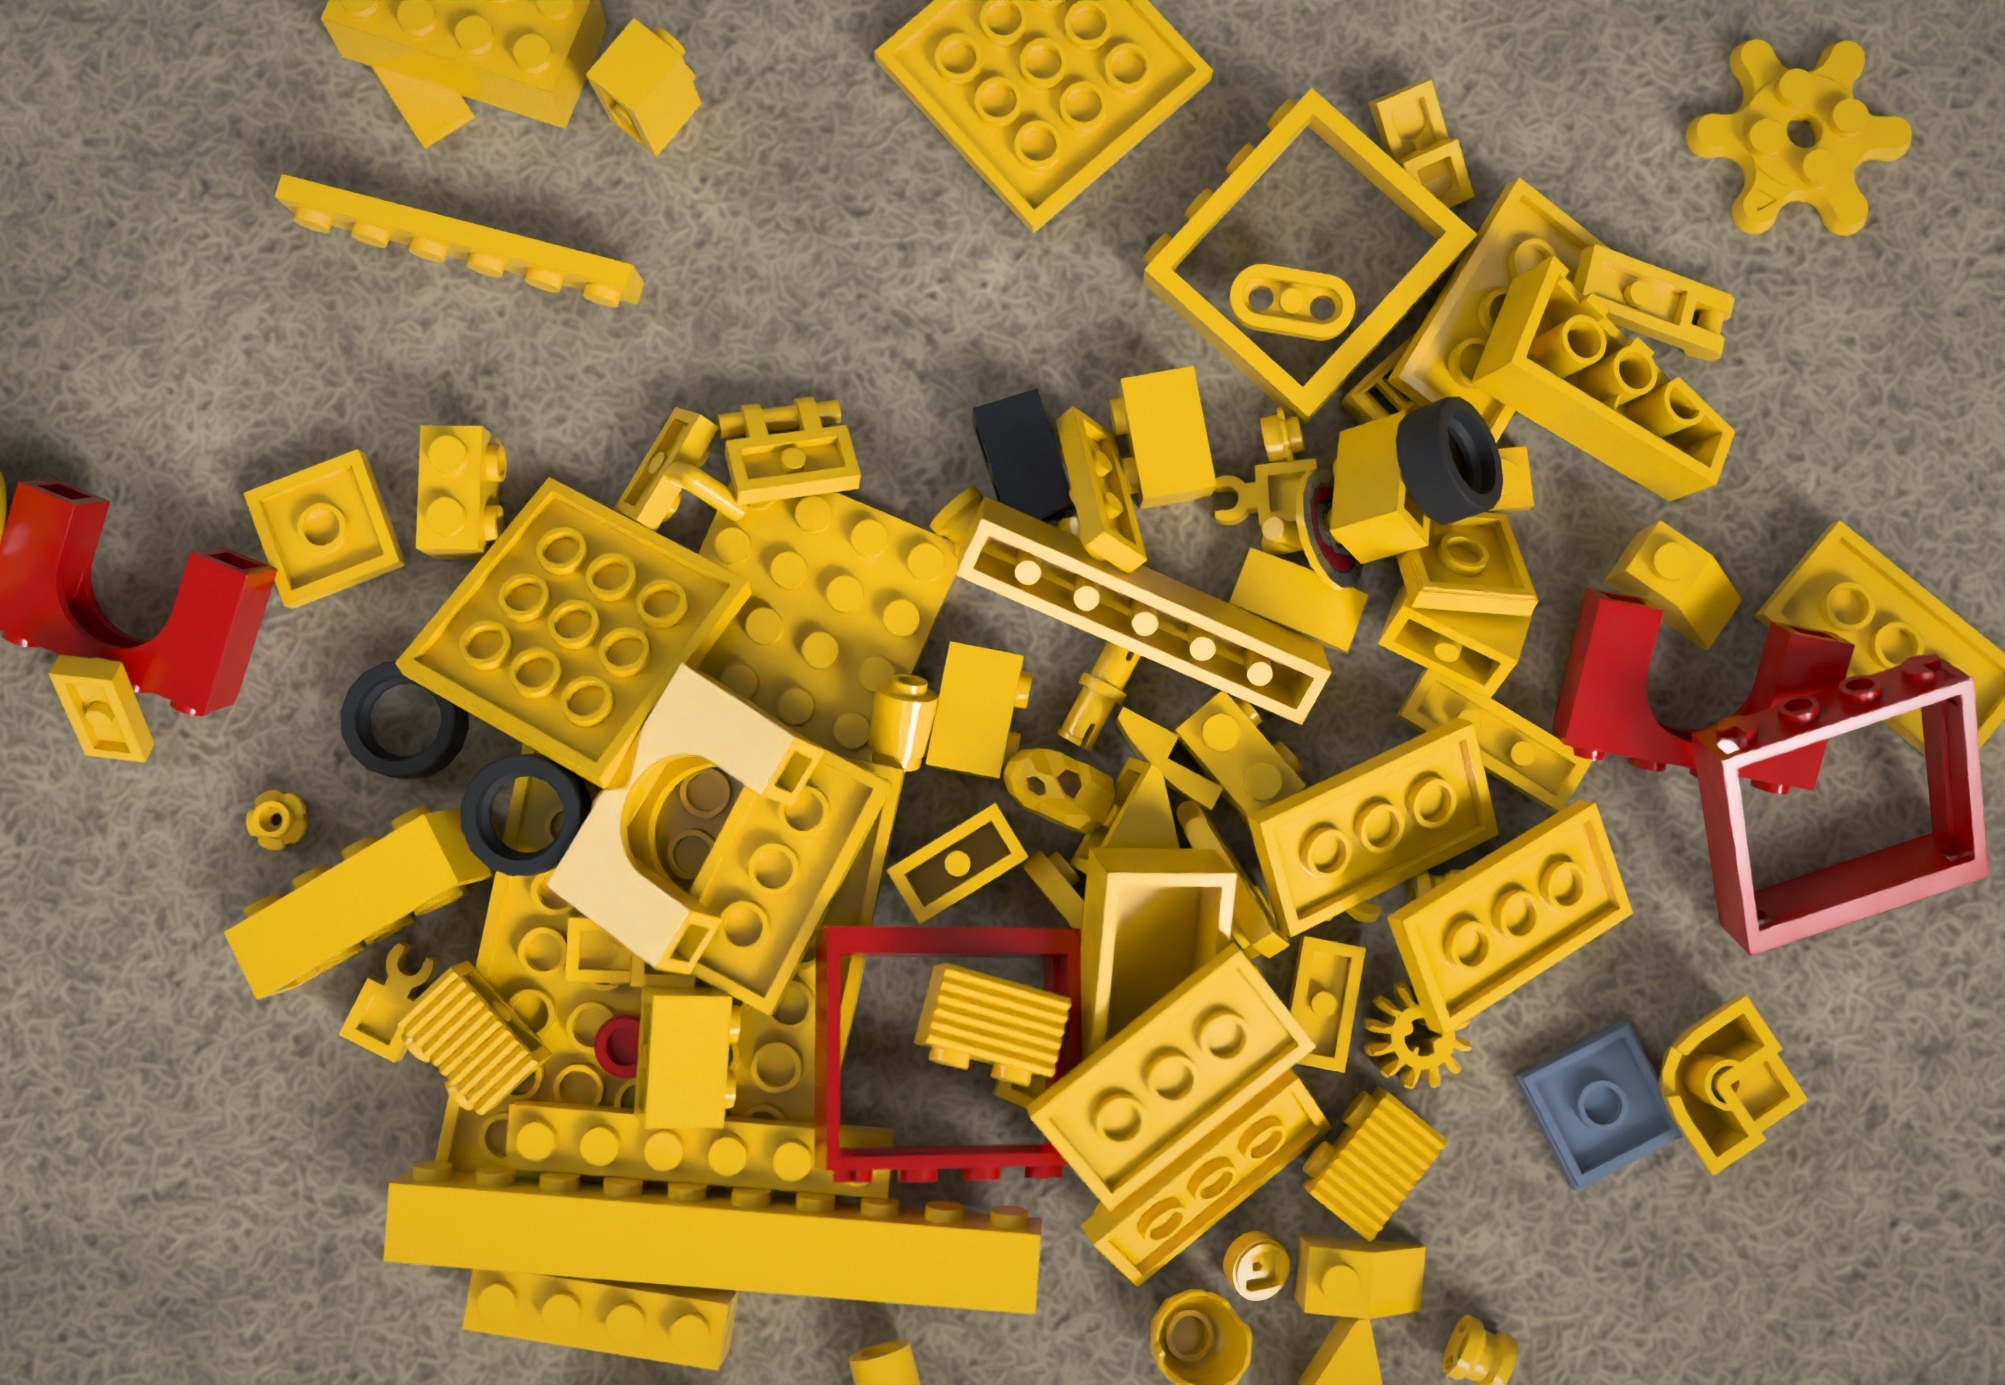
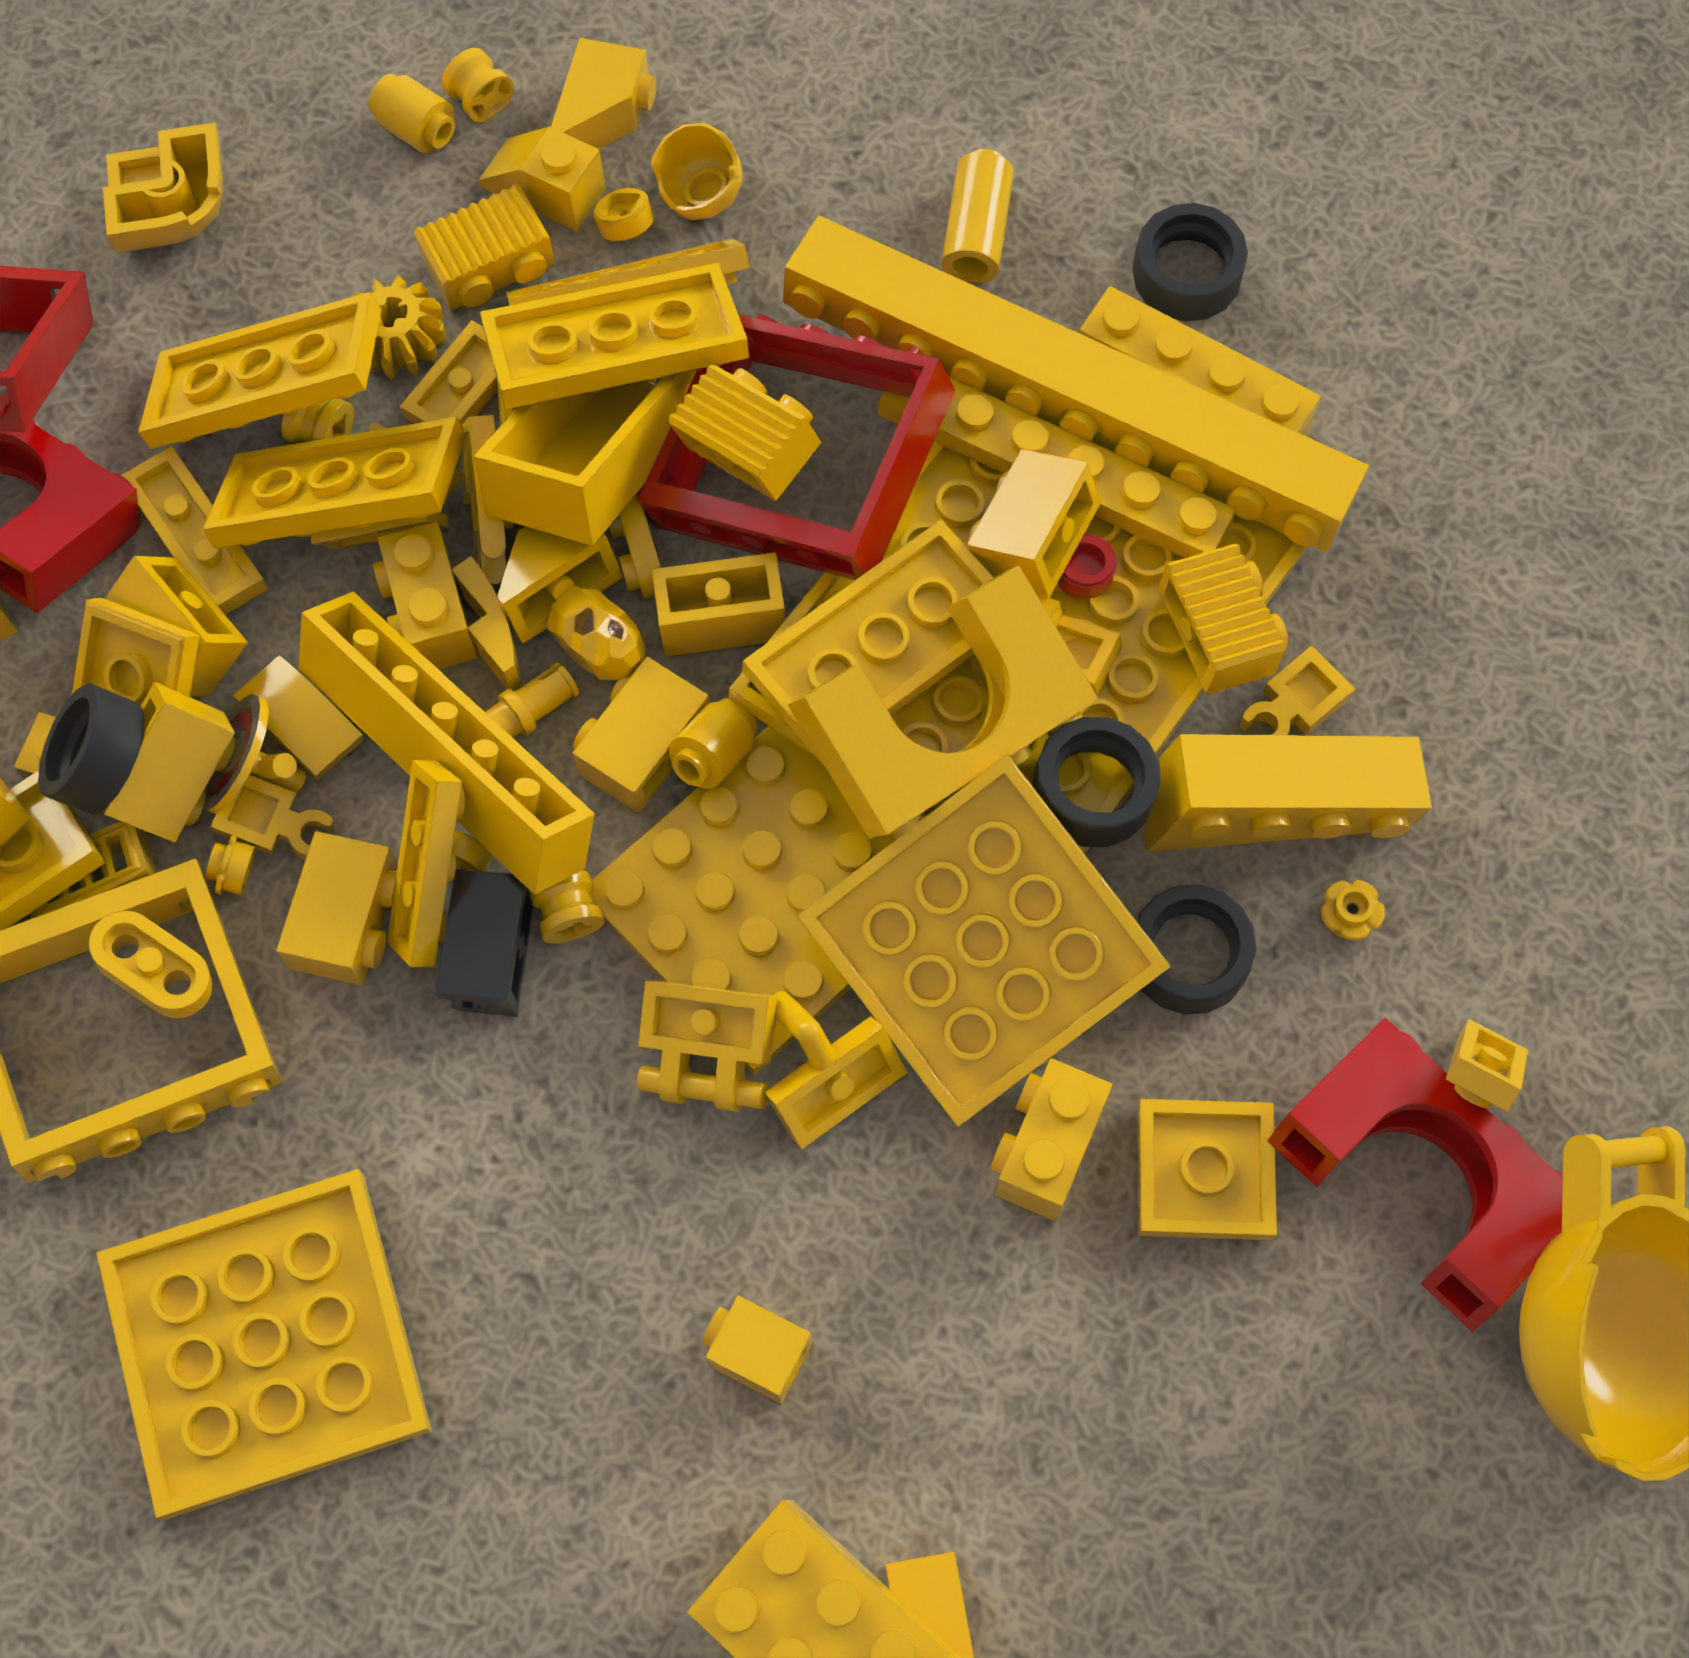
camera: 160 degrees left, 15 degrees down
(435, 236) = (976, 1427): yellow plate -> none
(637, 223) = (756, 1348): none -> yellow brick
(645, 85) = (678, 1478): yellow brick -> none
(1529, 1293) = (412, 112): none -> yellow brick
(1598, 1104) = (276, 228): sand blue tile -> none

